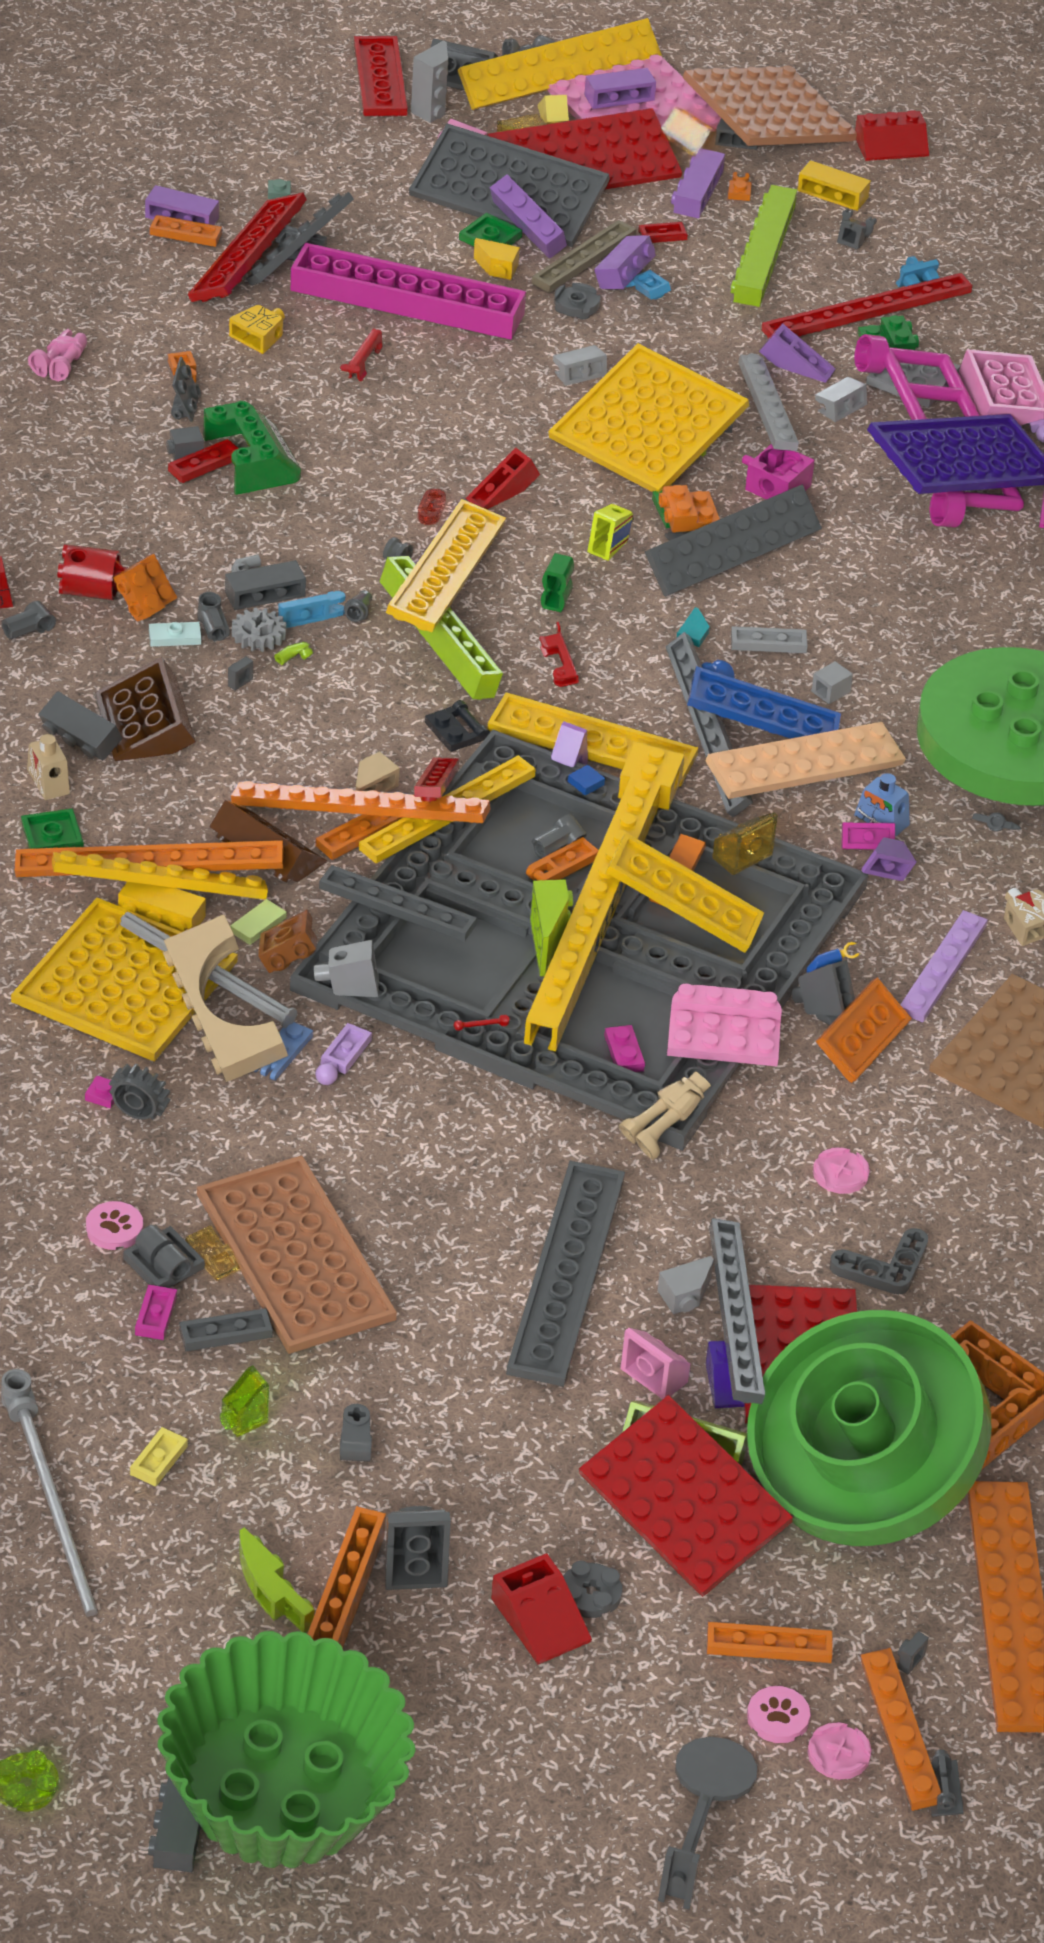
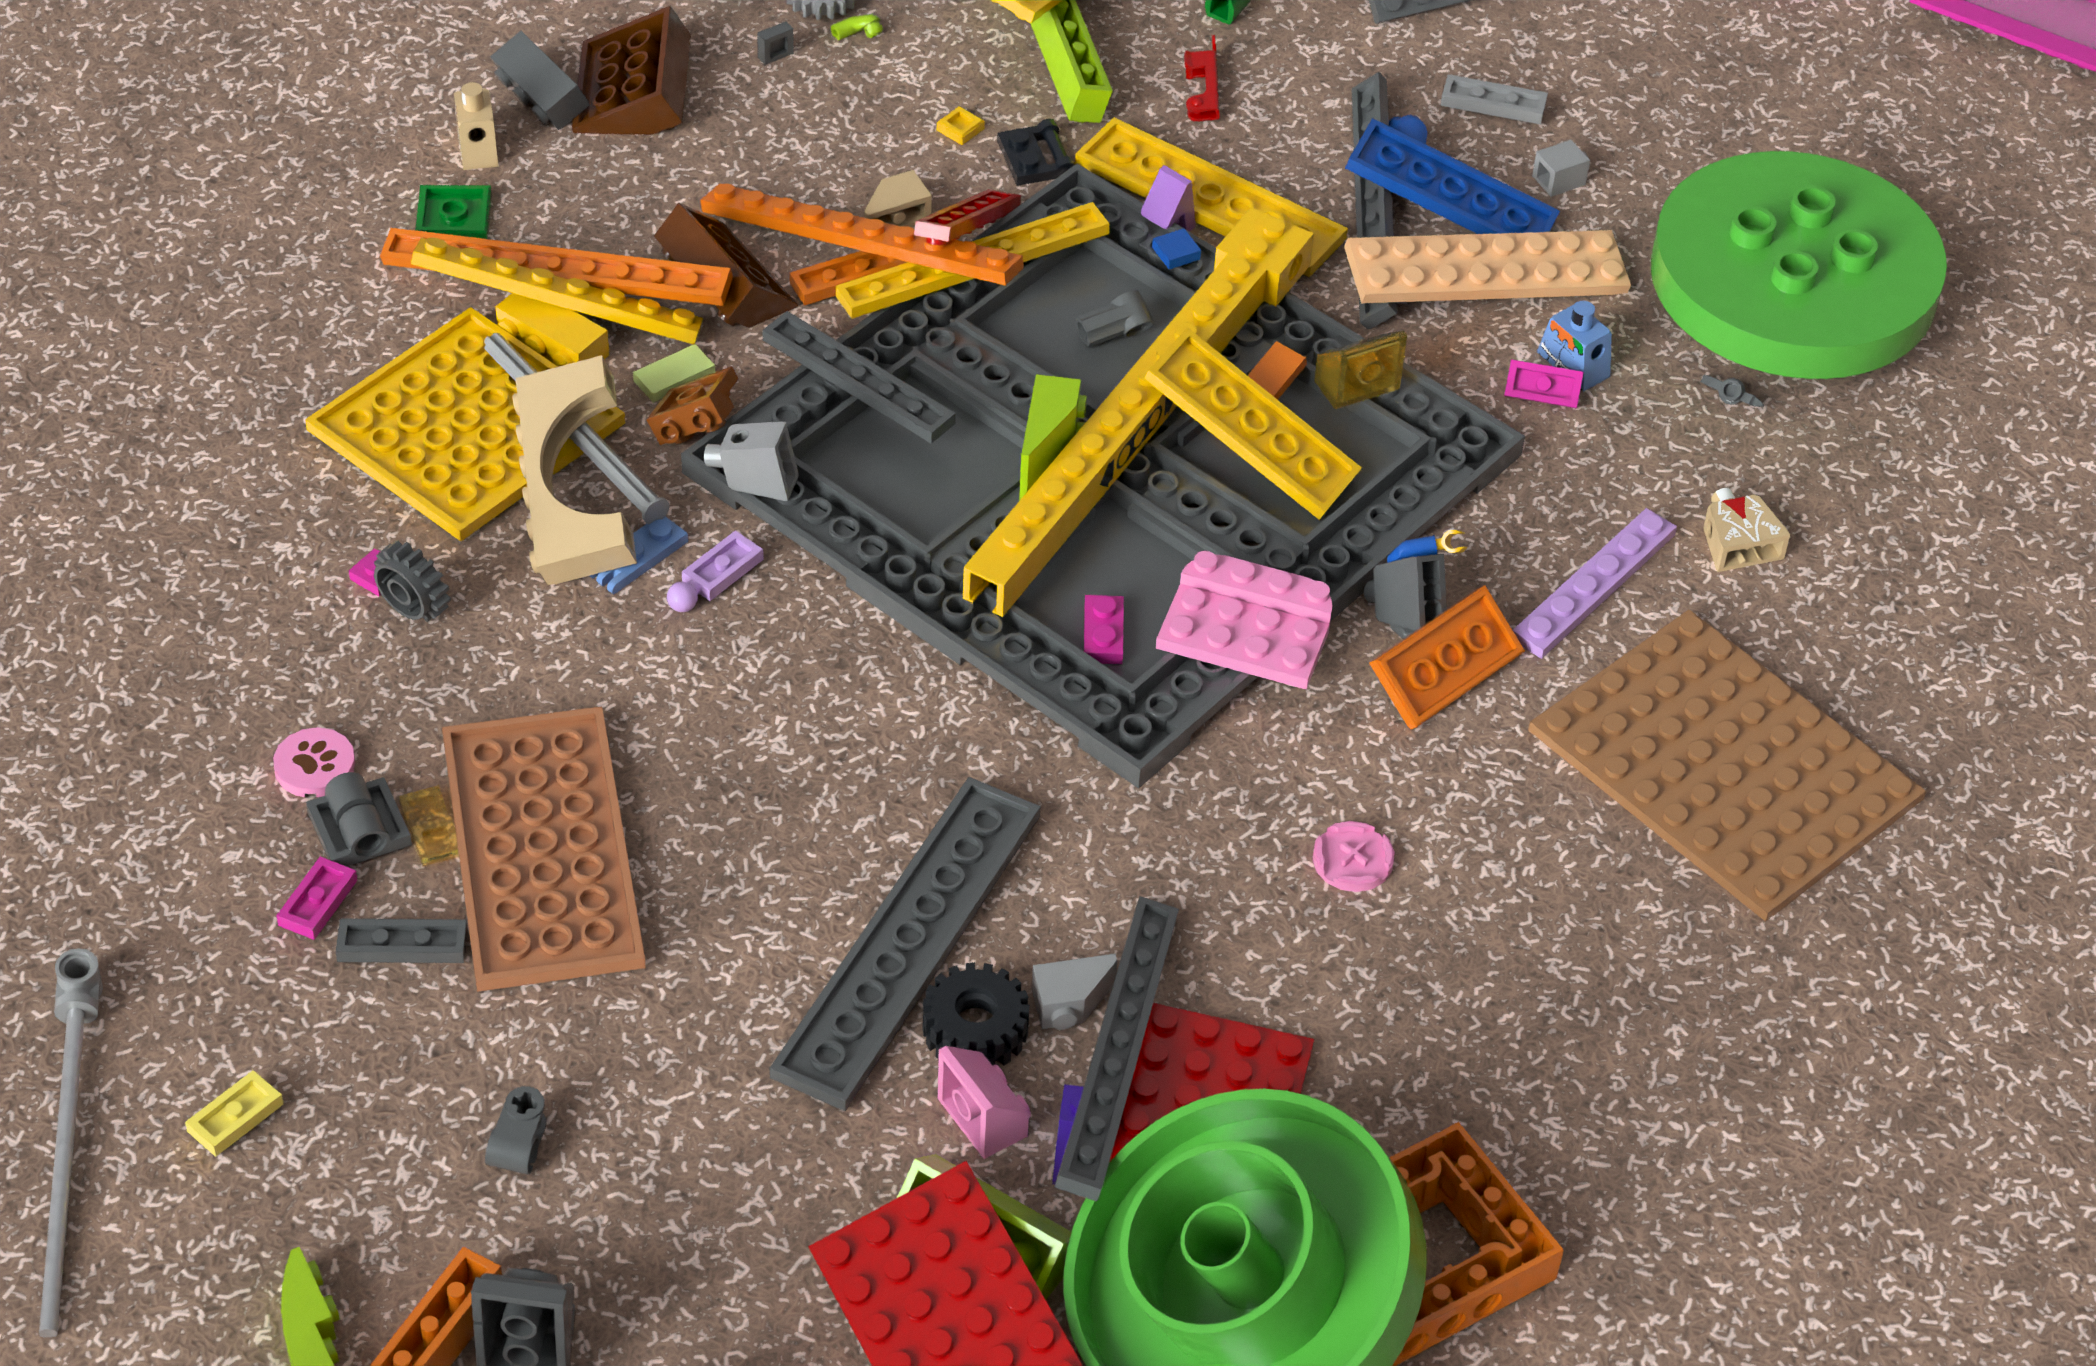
camera: 15 degrees right, 5 degrees up
(246, 1403) = (377, 1059): clear neon green slope -> none
(395, 714) = (960, 125): none -> yellow tile
(503, 1020) = (944, 561): red hinge -> none
(563, 861) = (1105, 355): orange plate -> none
(629, 1294) = (981, 990): none -> black tyre
(678, 1100) = (1144, 719): tan piece -> none
(695, 627) = (1400, 70): teal tile -> none
(886, 1272) = (1371, 1020): dark grey beam -> none
(890, 860) = (1560, 421): medium lavender slope -> none

